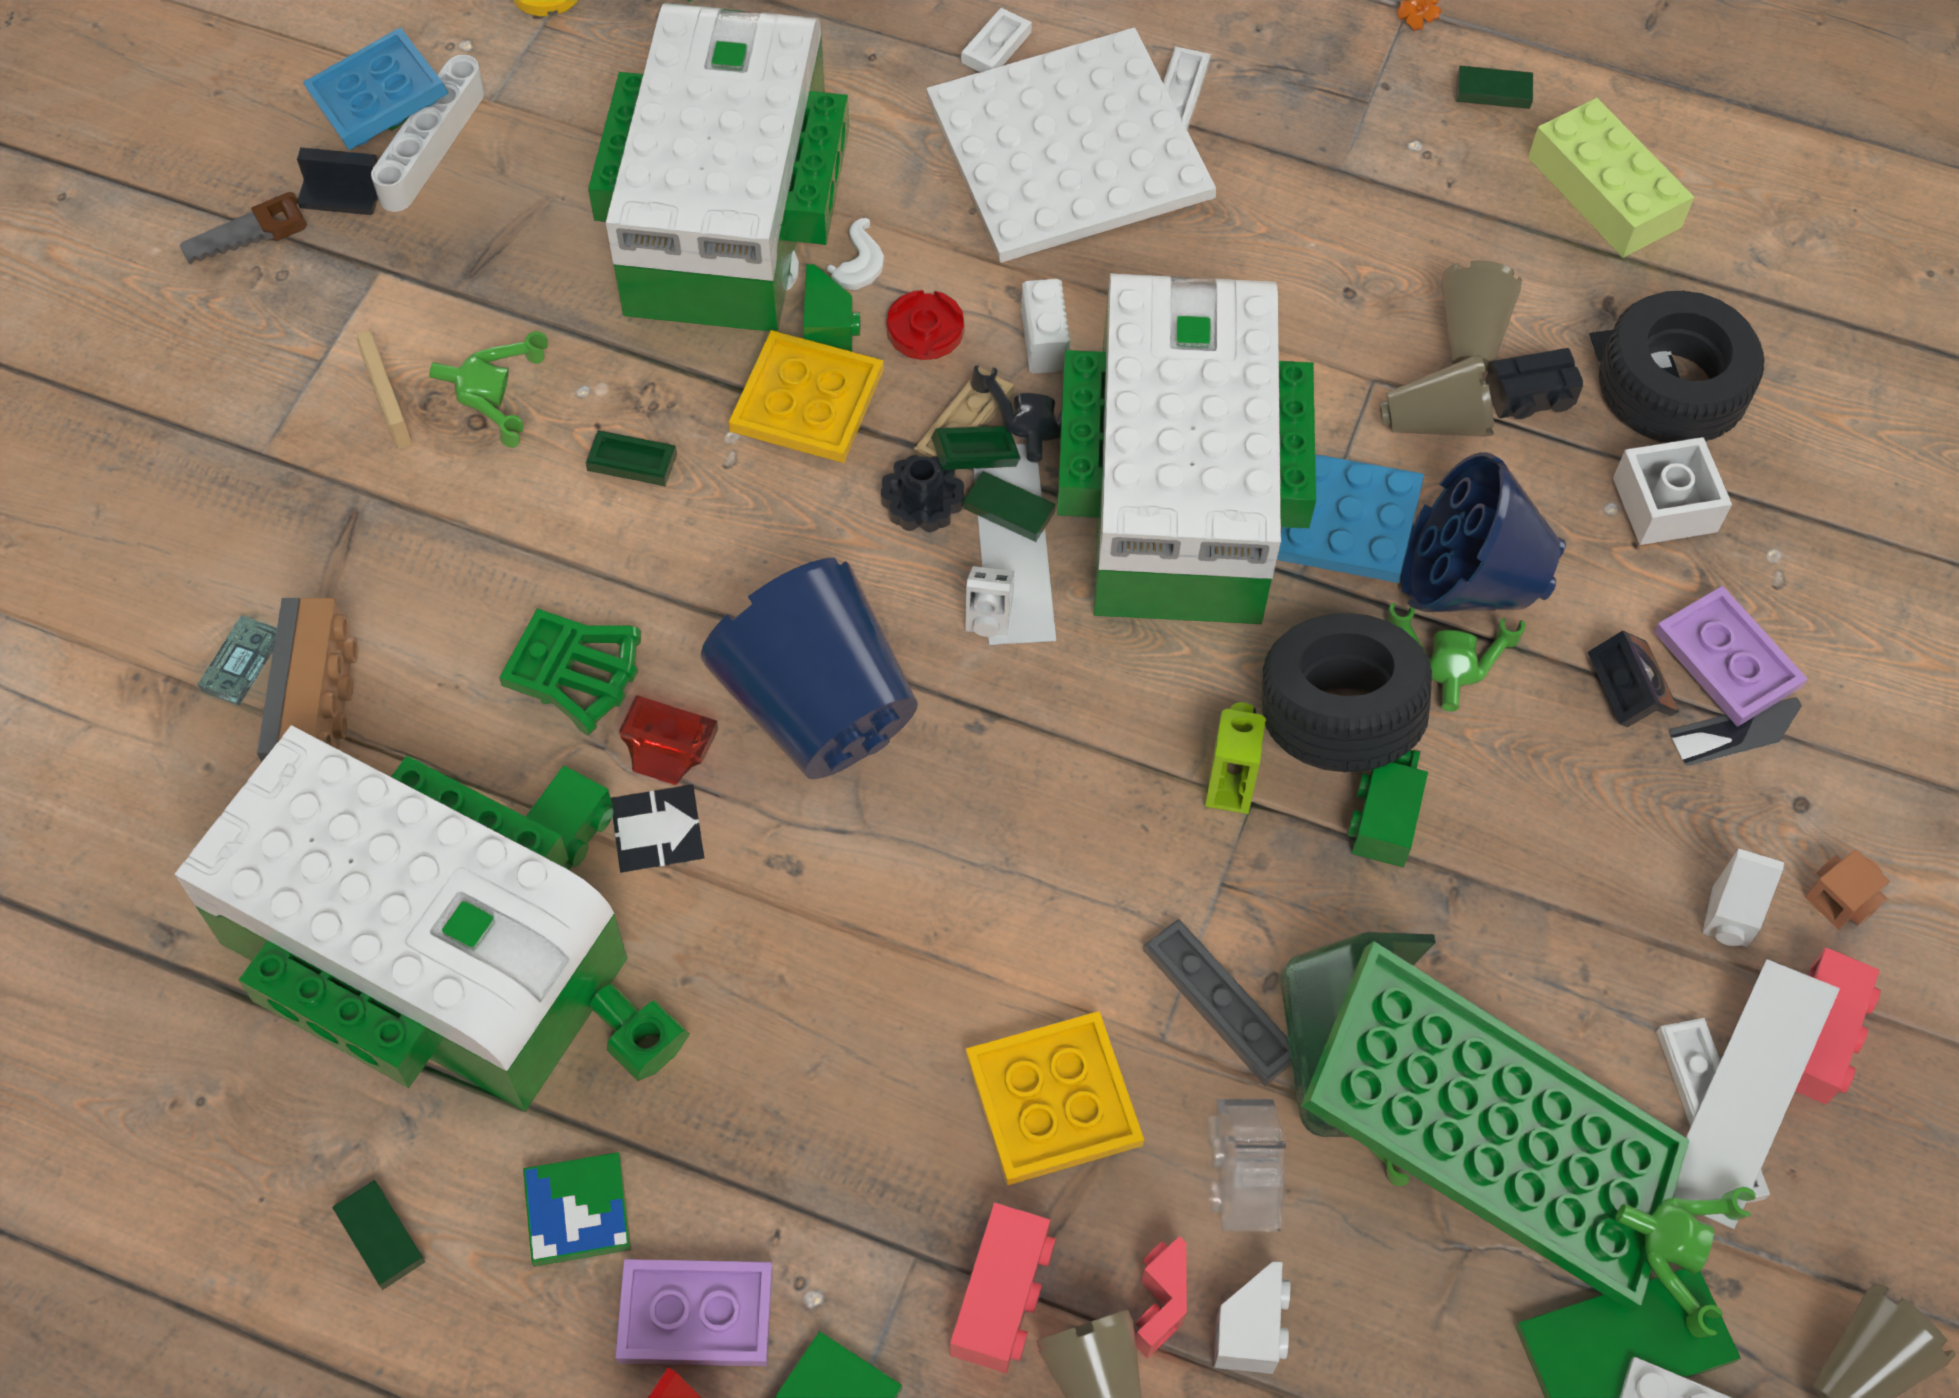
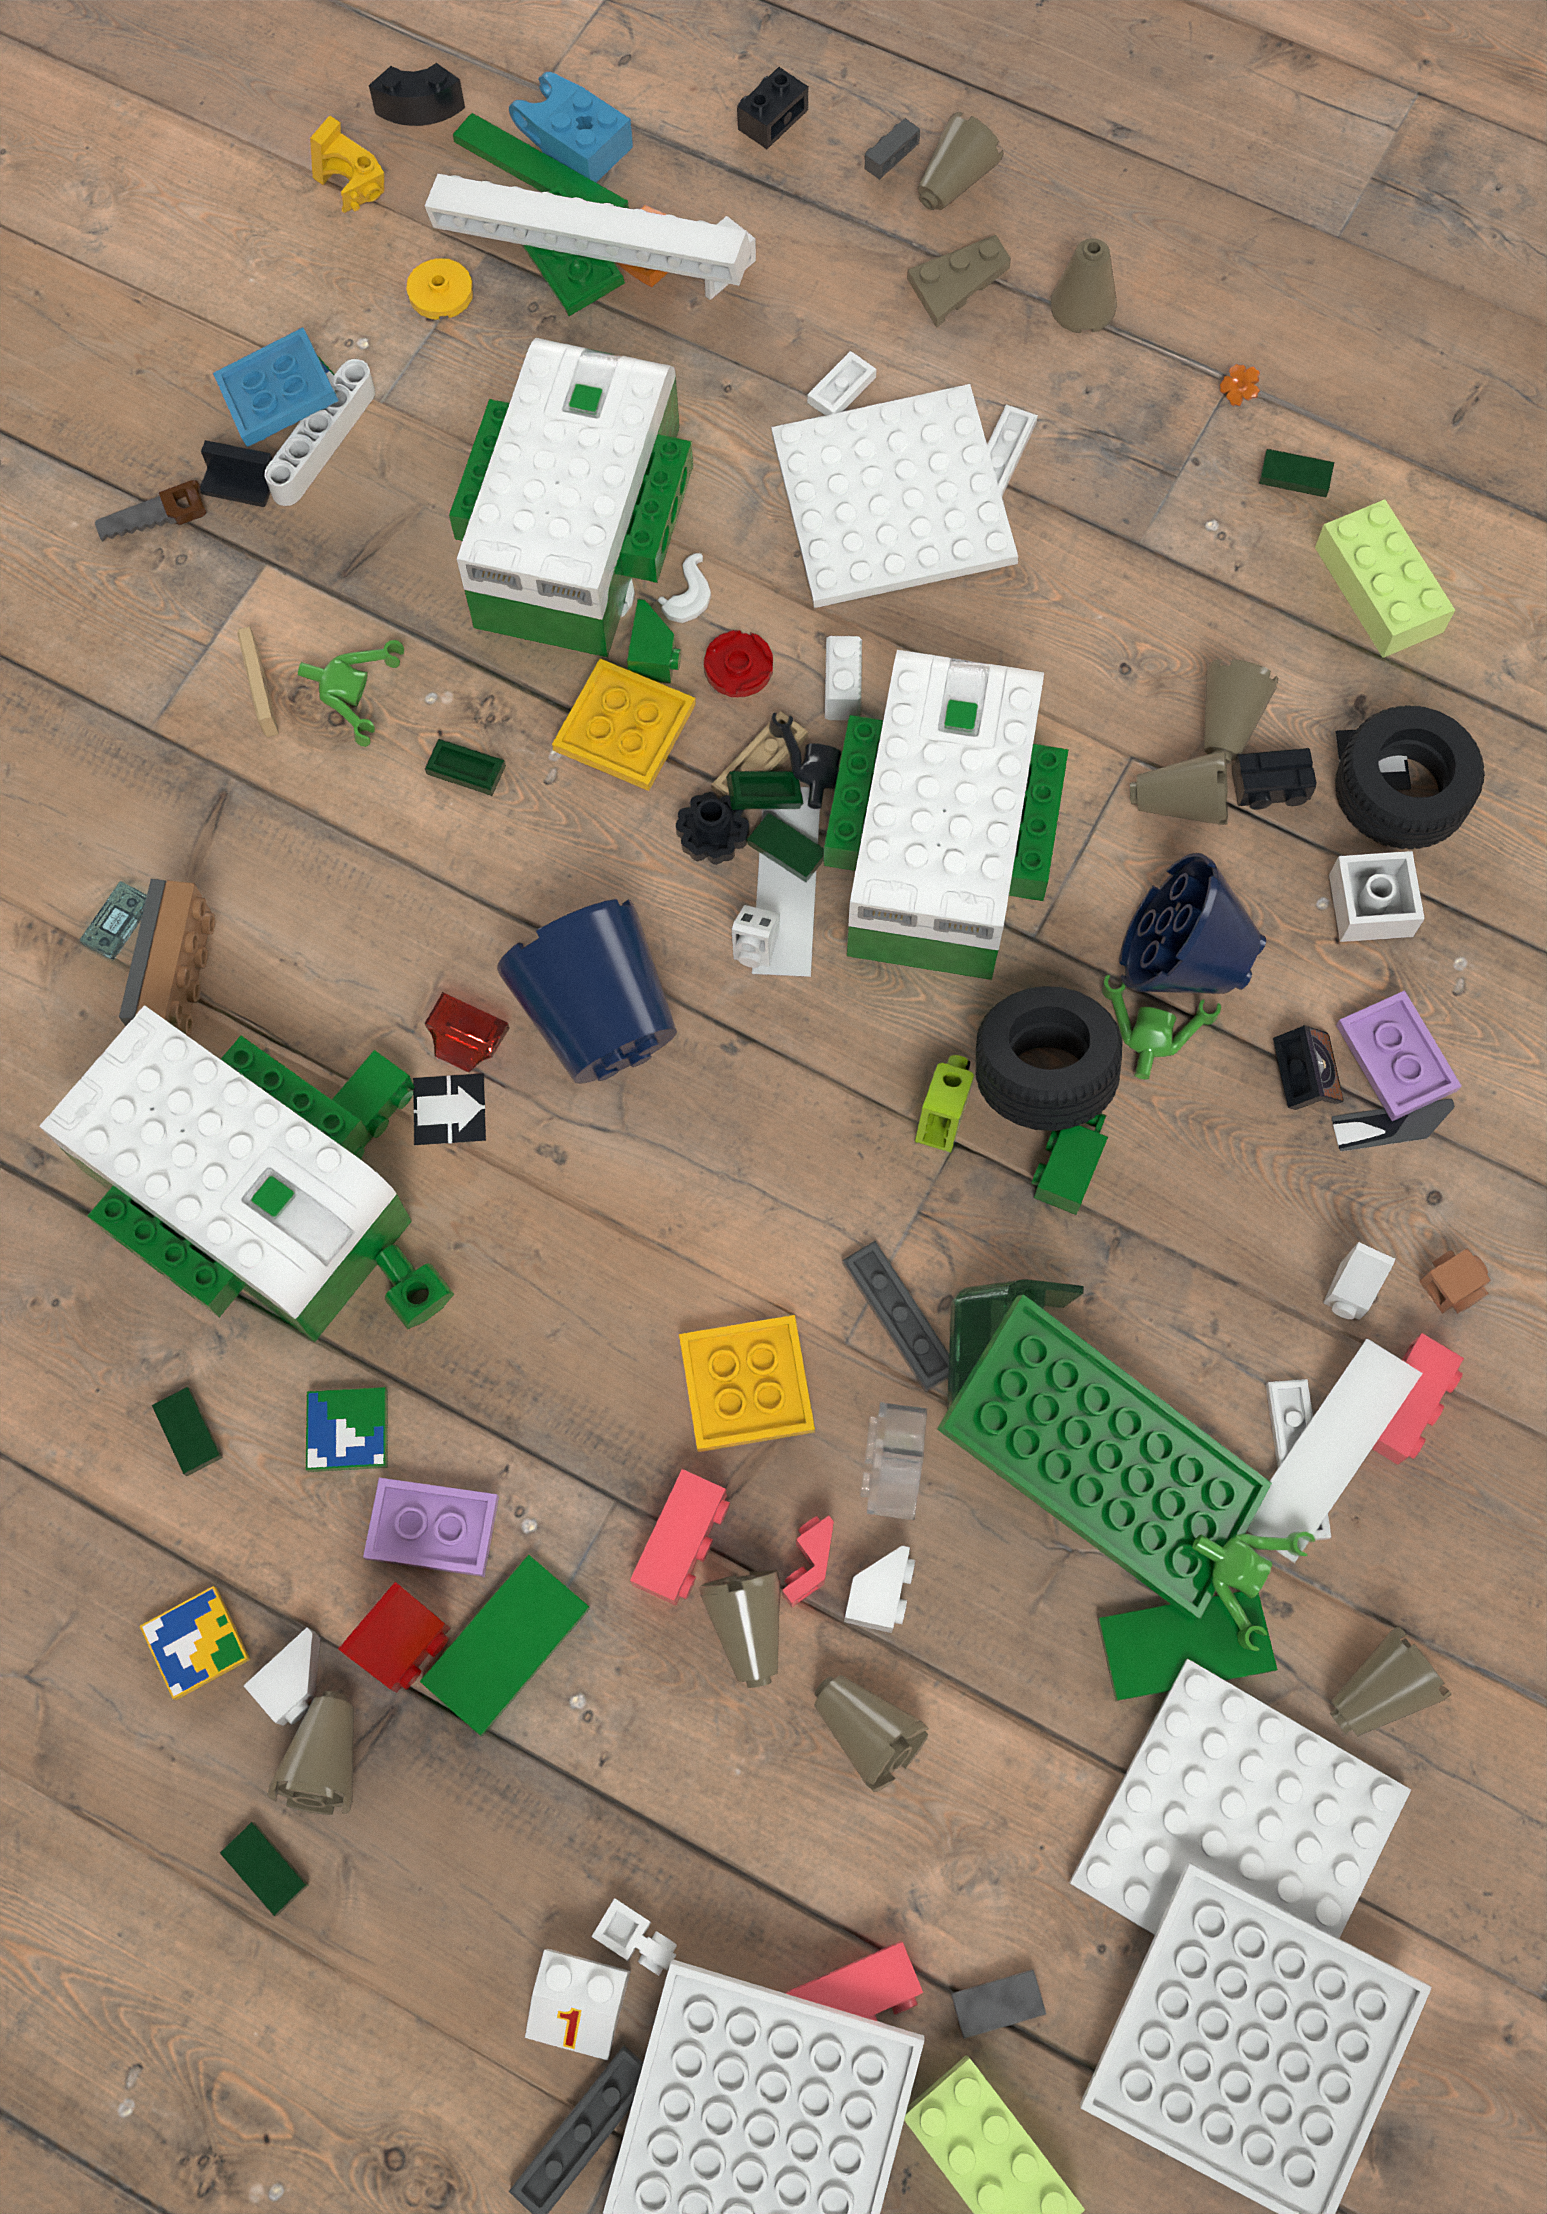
camera: 10 degrees right, 10 degrees up
(550, 649) = (373, 944): green plate -> none
(1357, 521) = (1090, 890): dark azure plate -> none

